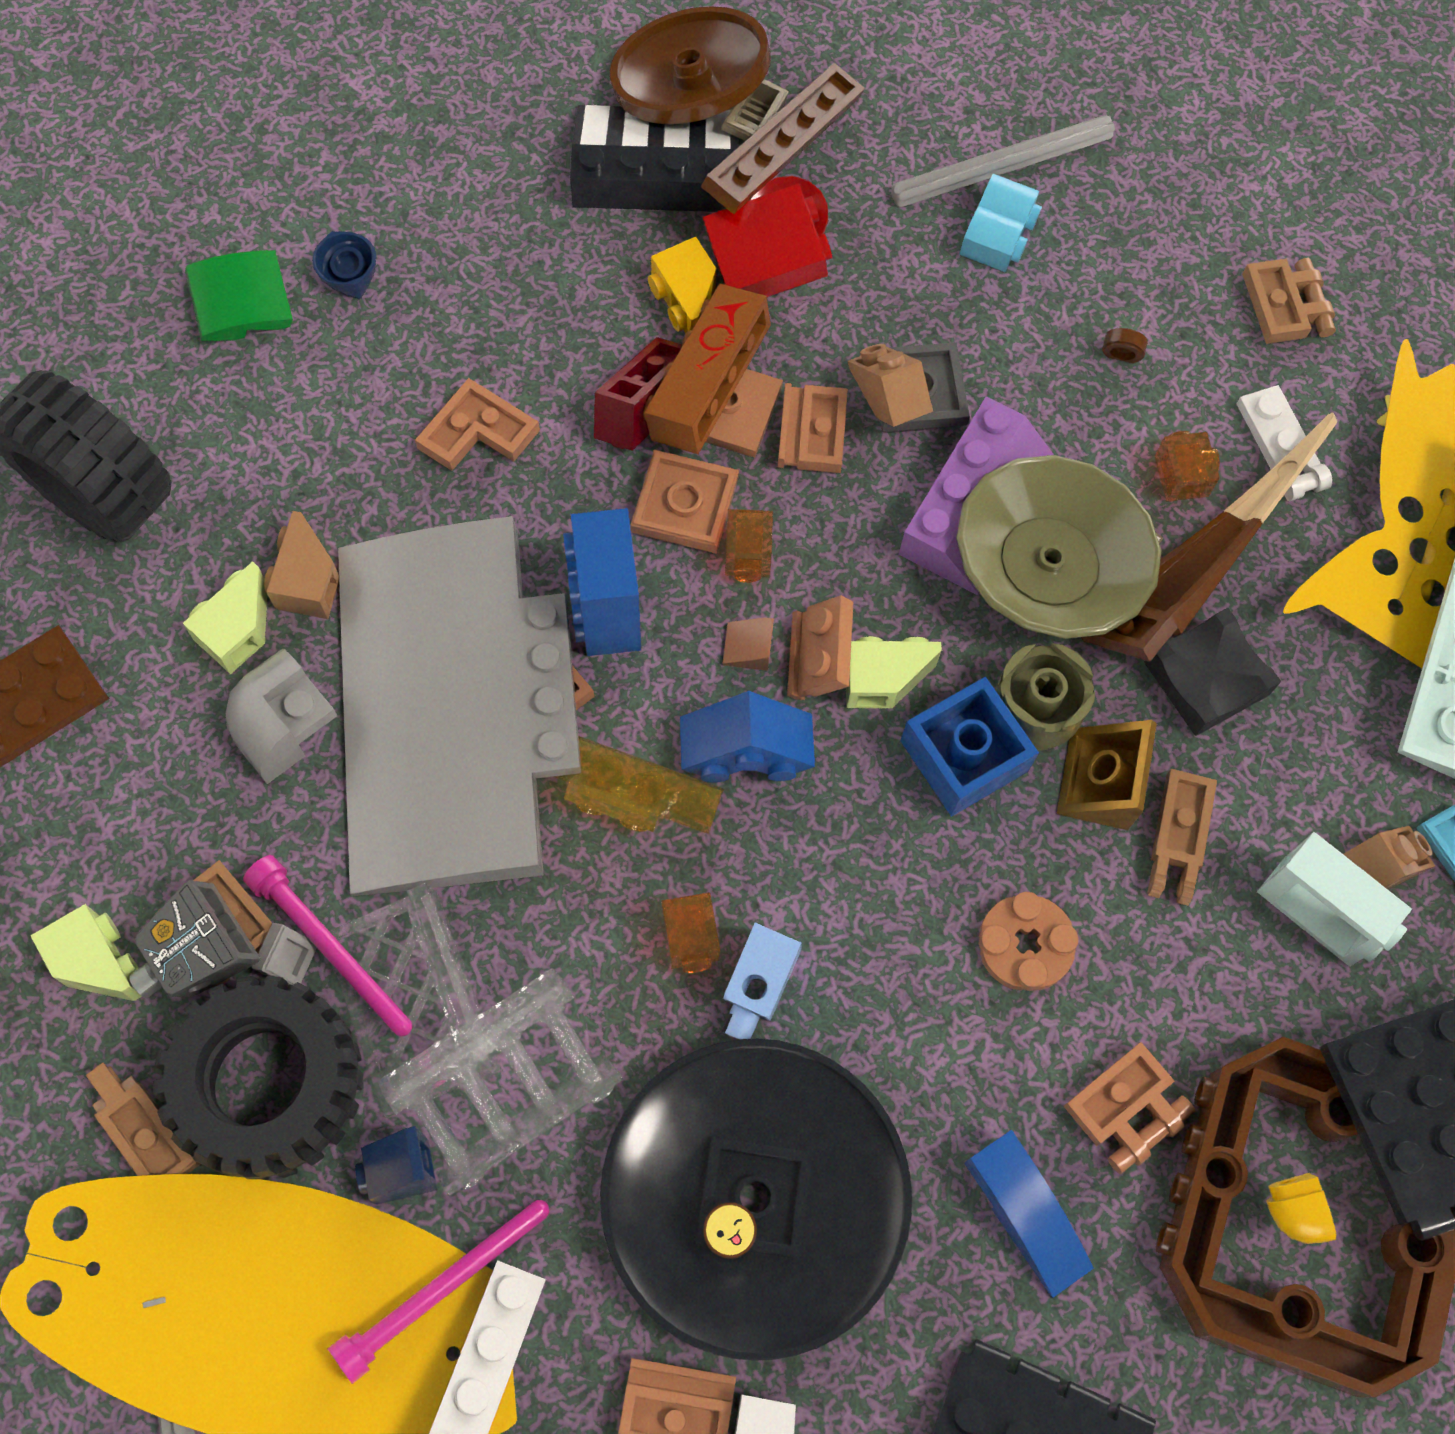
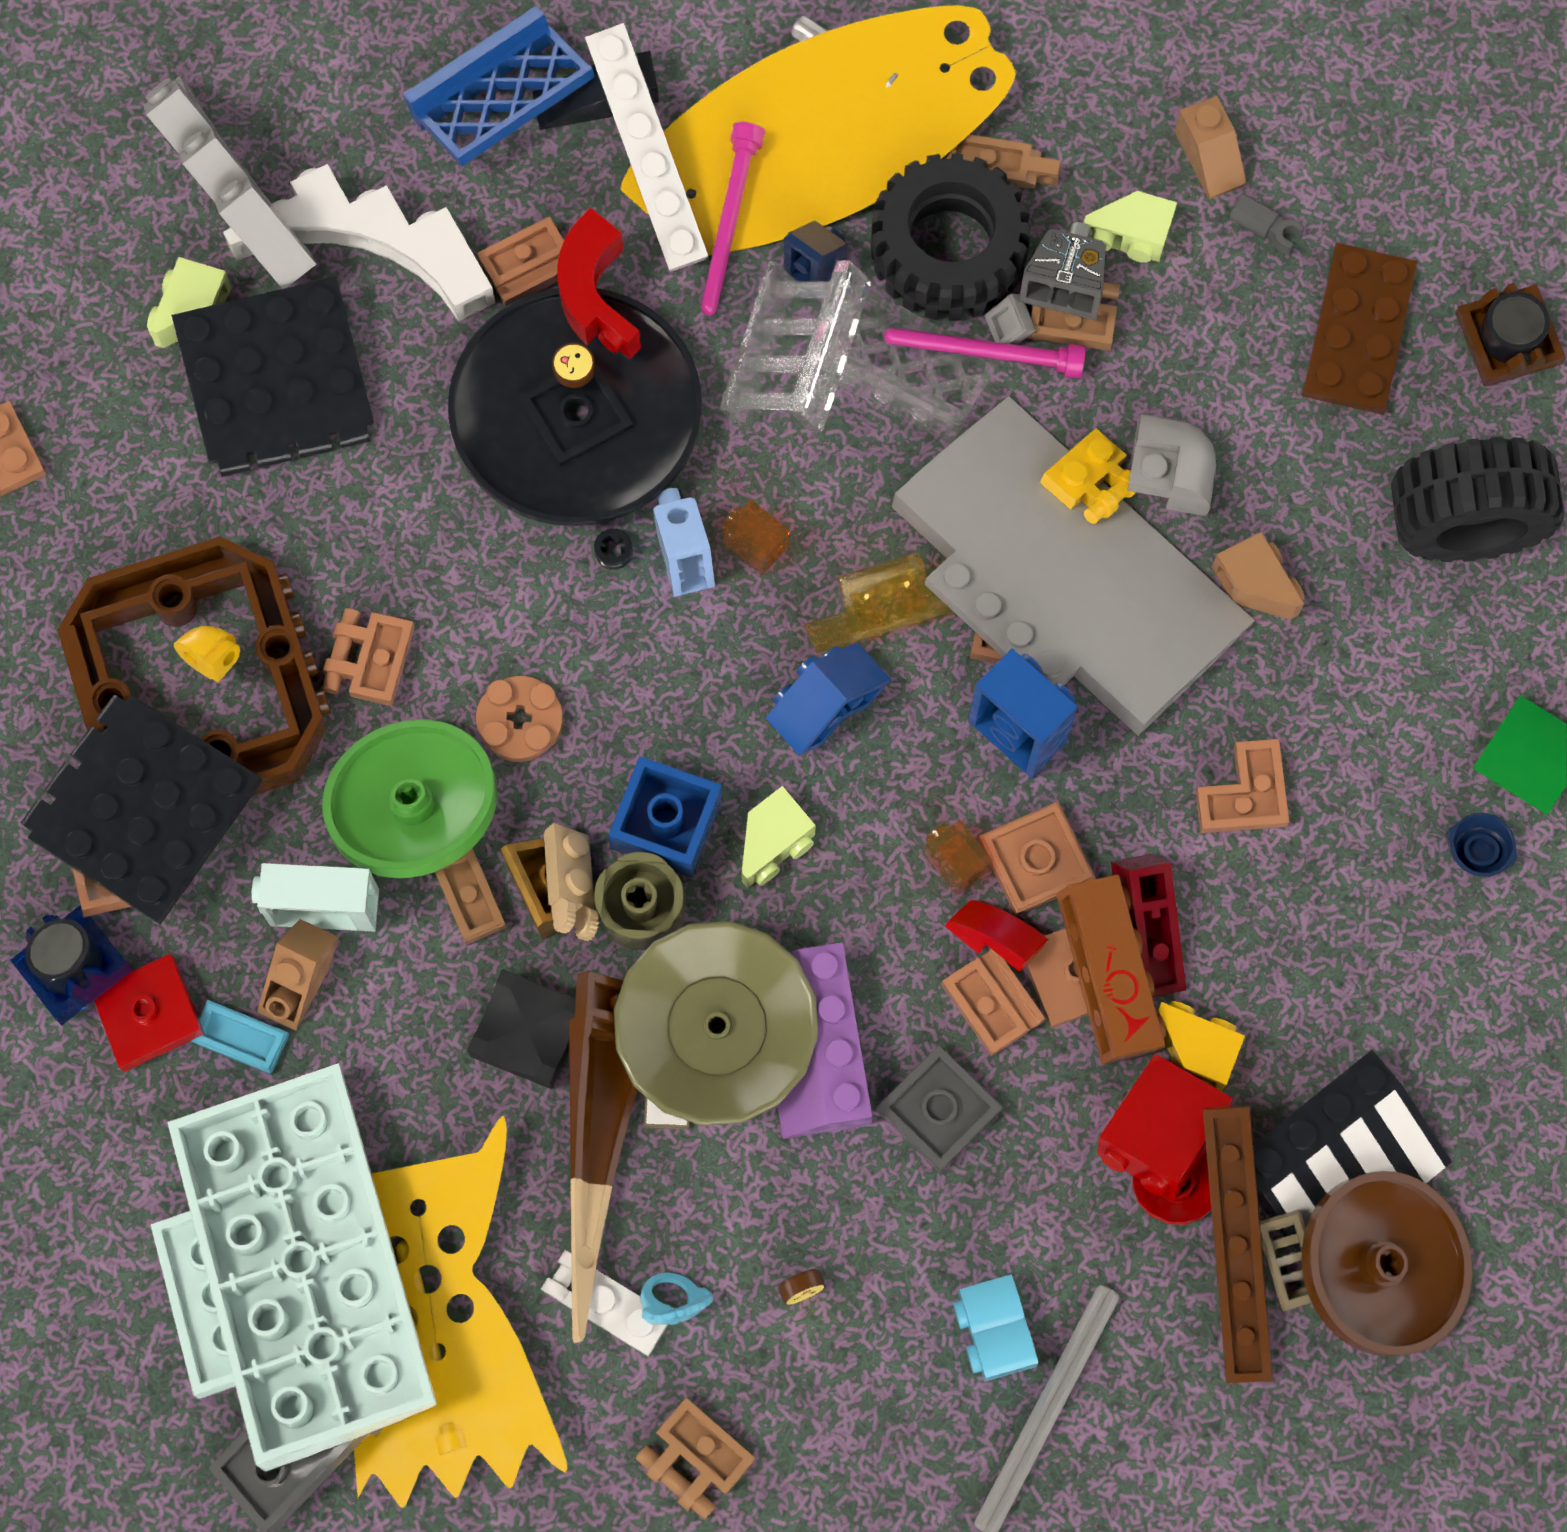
camera: 145 degrees right, 5 degrees up
(233, 620) = (1268, 502): yellowish green slope -> none
(354, 769) = (1083, 469): none -> yellow plate
(639, 1334) = (582, 259): none -> red arch
(748, 643) = (892, 784): nougat slope -> none
(767, 465) = (989, 926): none -> red slope
(820, 648) = (834, 812): nougat plate -> none
(835, 1024) = (609, 561): none -> black bush
(891, 384) = (956, 1068): medium nougat slope -> none
(1030, 1213) = (391, 534): blue slope -> none
(1094, 751) = (570, 881): none -> tan hinge
(1187, 465) = (670, 1206): clear orange brick -> none
(1187, 932) = (410, 798): none -> bright green dish
(1212, 390) = (664, 1314): none -> medium azure piece

